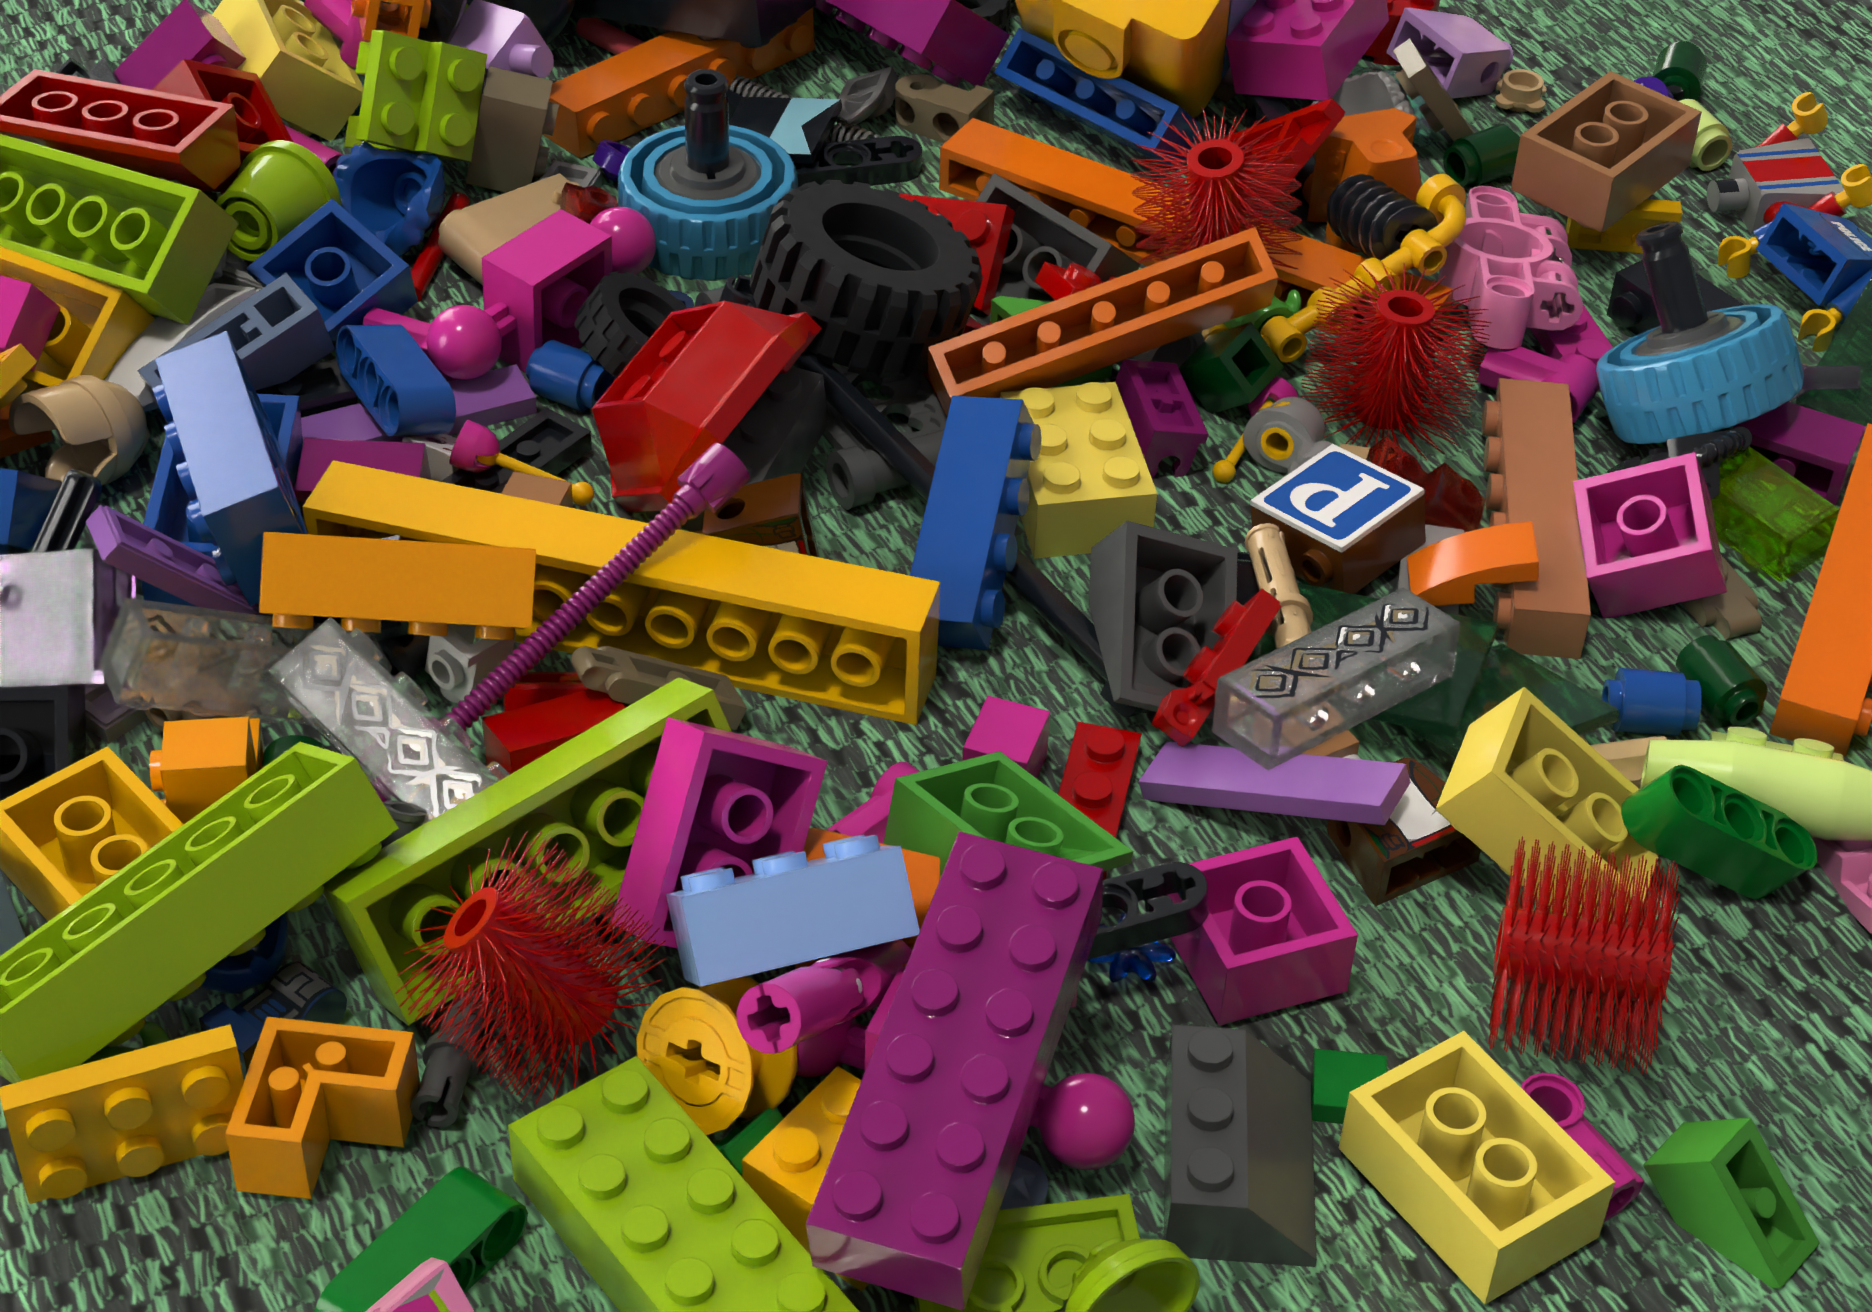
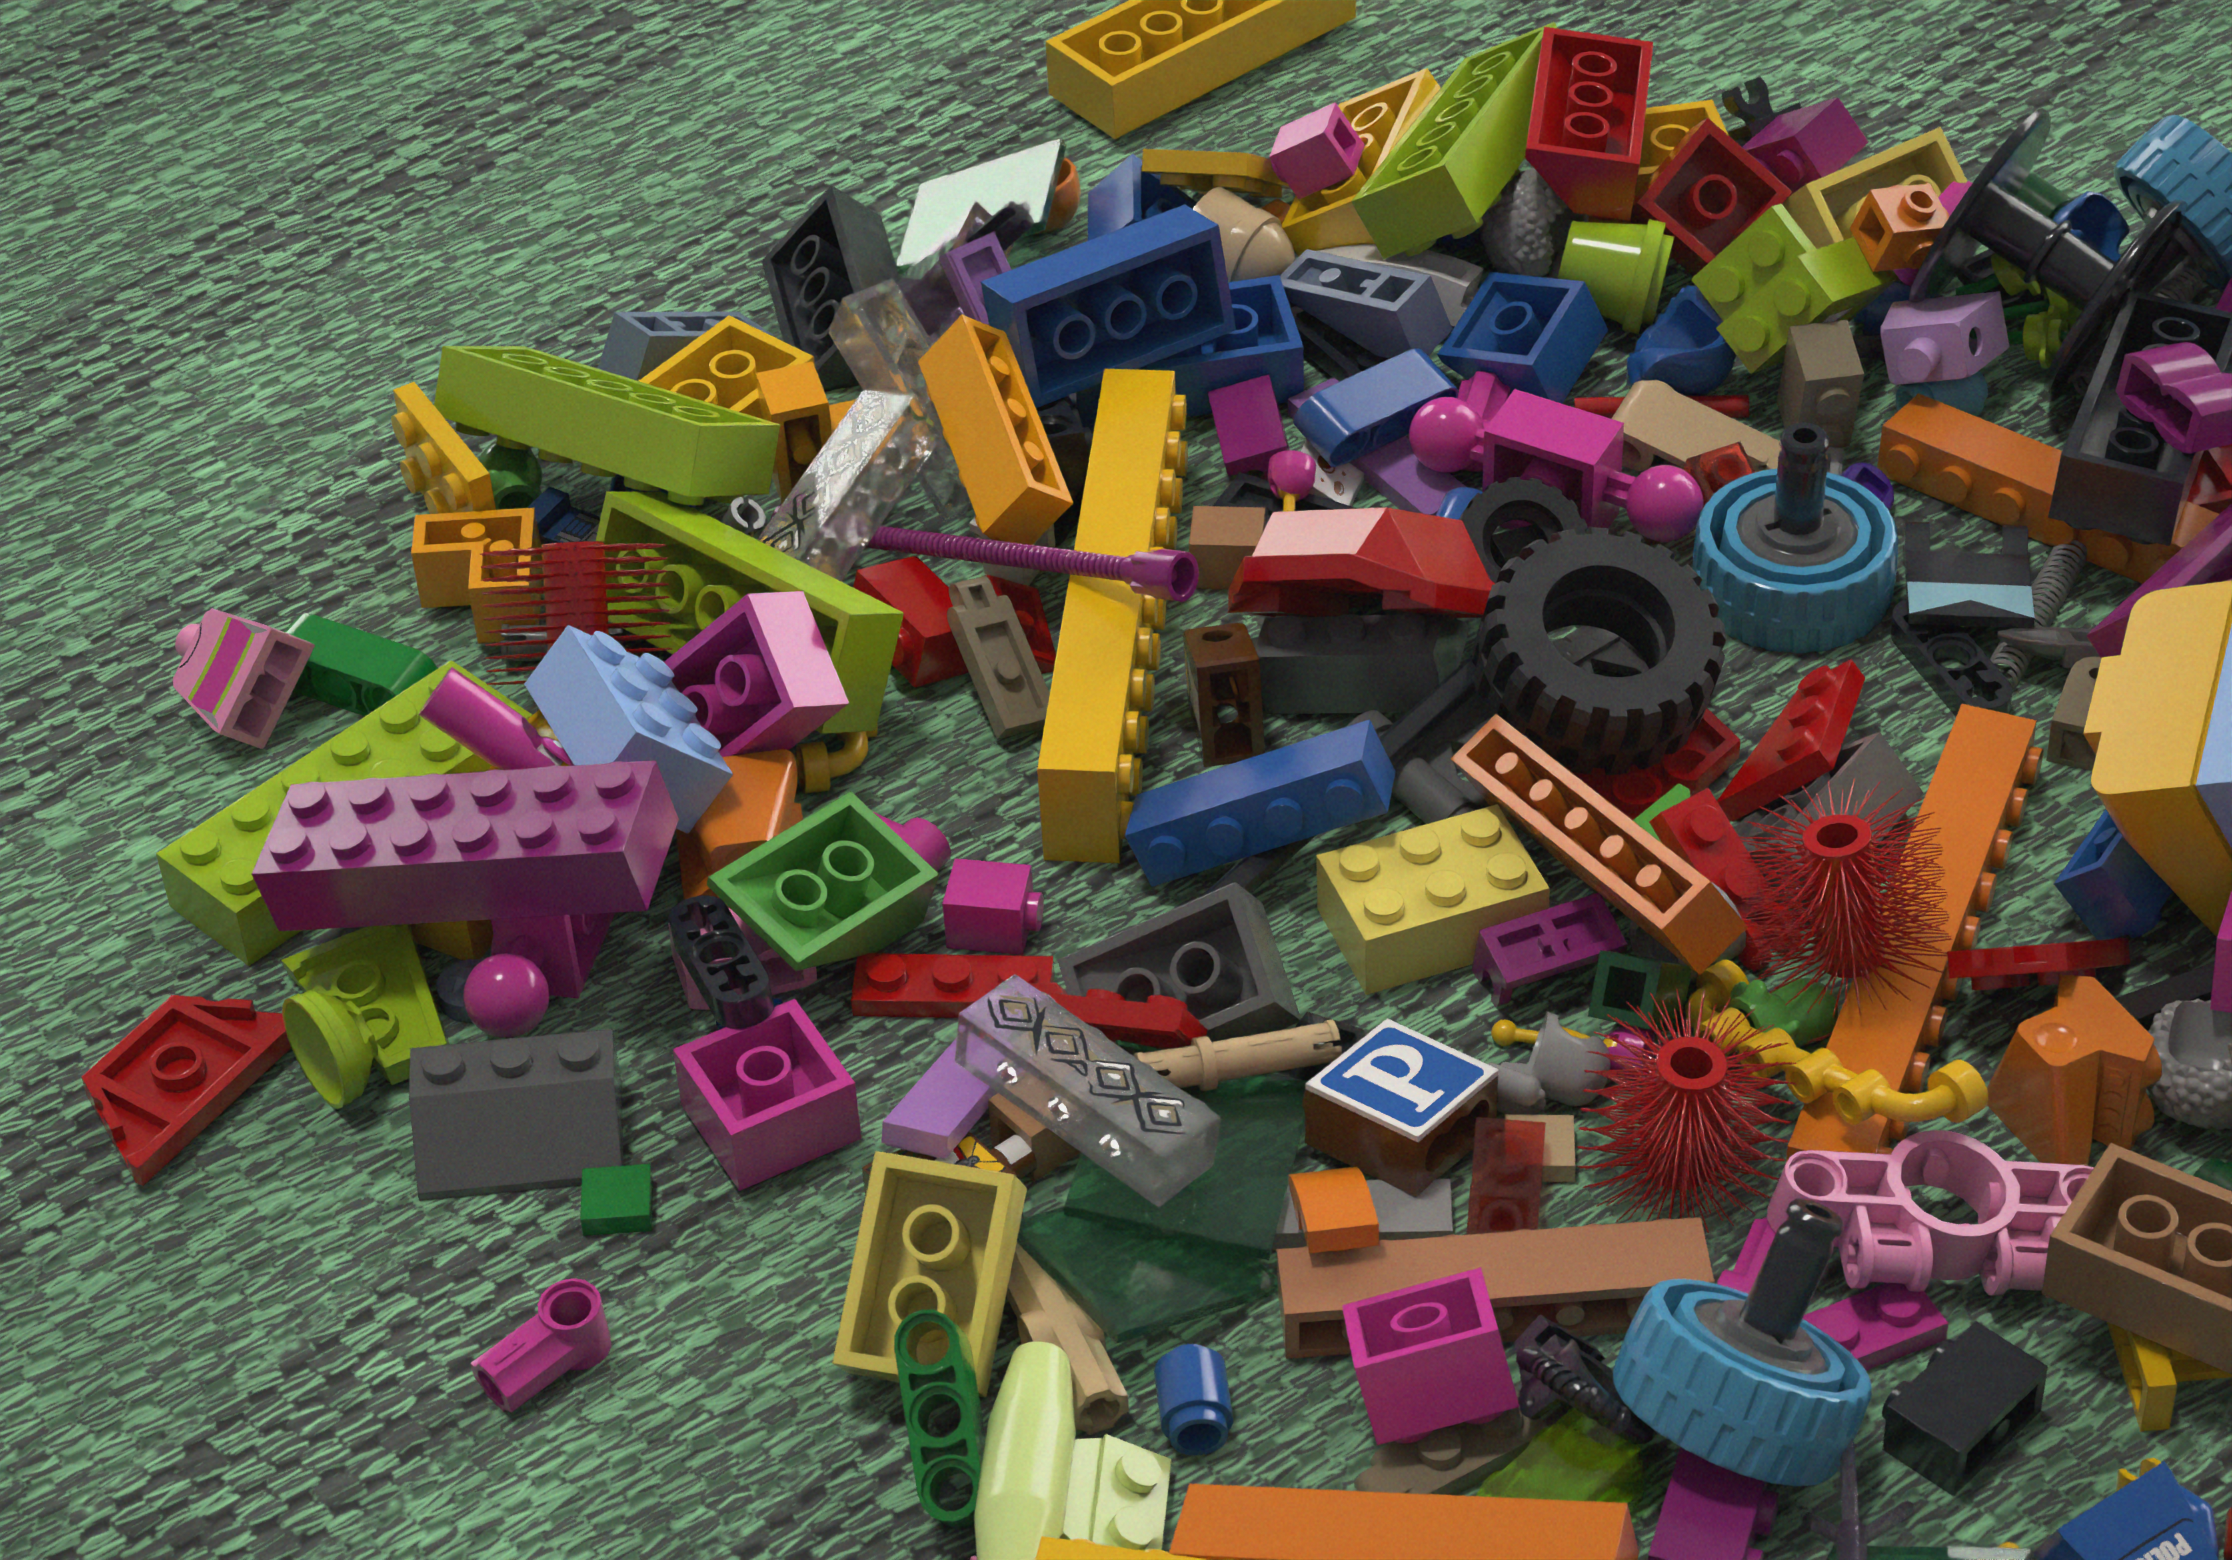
camera: 85 degrees right, 0 degrees up
(1374, 215) = (1915, 1055): black piece -> none
(1475, 1166) = (489, 1254): light yellow brick -> none
(1583, 955) = (728, 1297): red piece -> none
(1729, 685) = (1247, 1453): dark green brick -> none
(1733, 1197) = (494, 1467): bright green slope -> none

